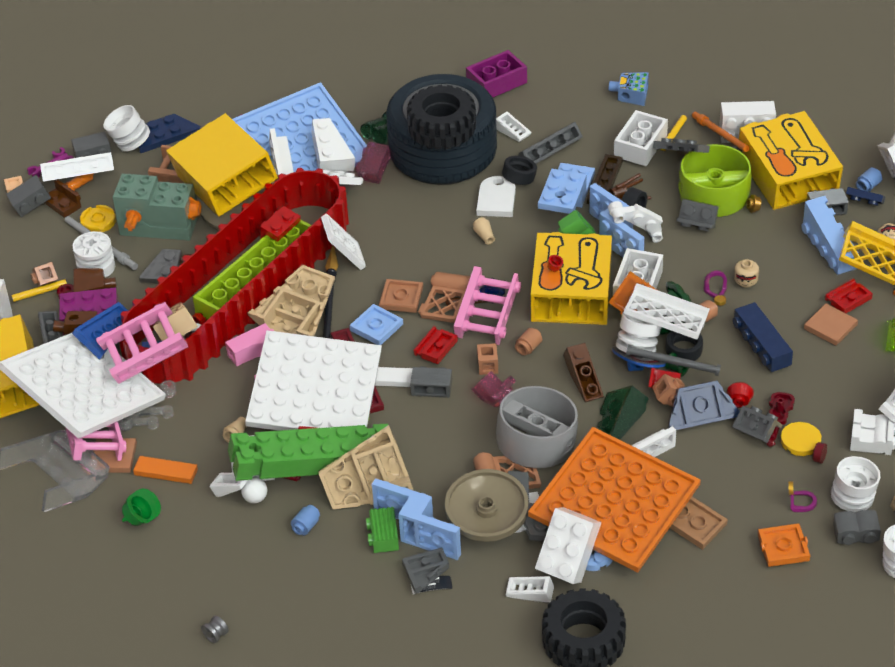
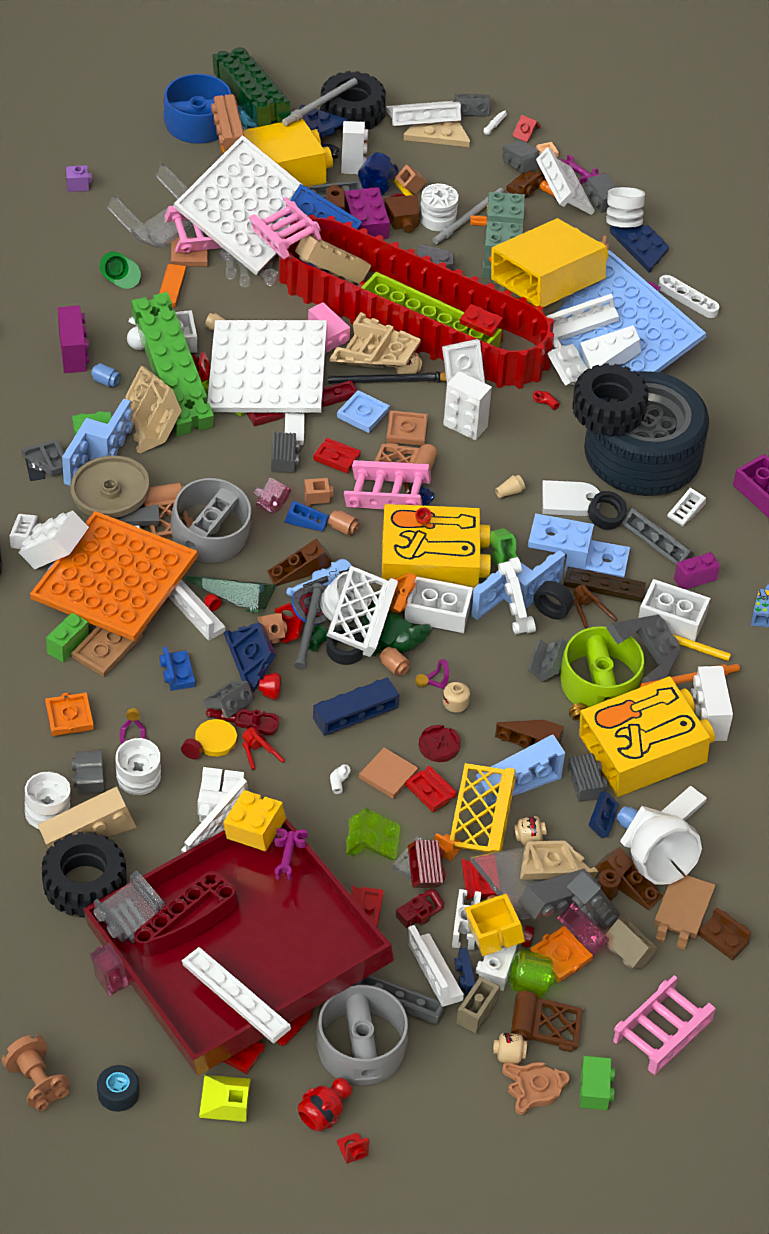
camera: 80 degrees right, 5 degrees up
(32, 297) = (377, 172): none -> clear blue brick
(254, 542) = (72, 339): none -> magenta brick
(256, 98) = (706, 306): none -> white beam
(366, 204) = (545, 397): none -> red arm
(394, 240) = (467, 405): none -> white brick
(516, 370) = (296, 517): none -> blue slope
(592, 124) = (696, 571): none -> magenta brick
(602, 358) = (323, 576): none -> light blue piece
(631, 437) = (213, 602): none -> red hinge
(686, 544) = (67, 637): none -> bright green brick
(718, 465) = (178, 669): none -> blue bracket
(784, 229) = (527, 732): none -> reddish brown slope
(792, 292) = (439, 743): none -> dark red tile
(804, 409) = (255, 740): none -> red plant
(840, 357) = (338, 777): none -> white arm
(853, 157) = (686, 803): none -> white tile

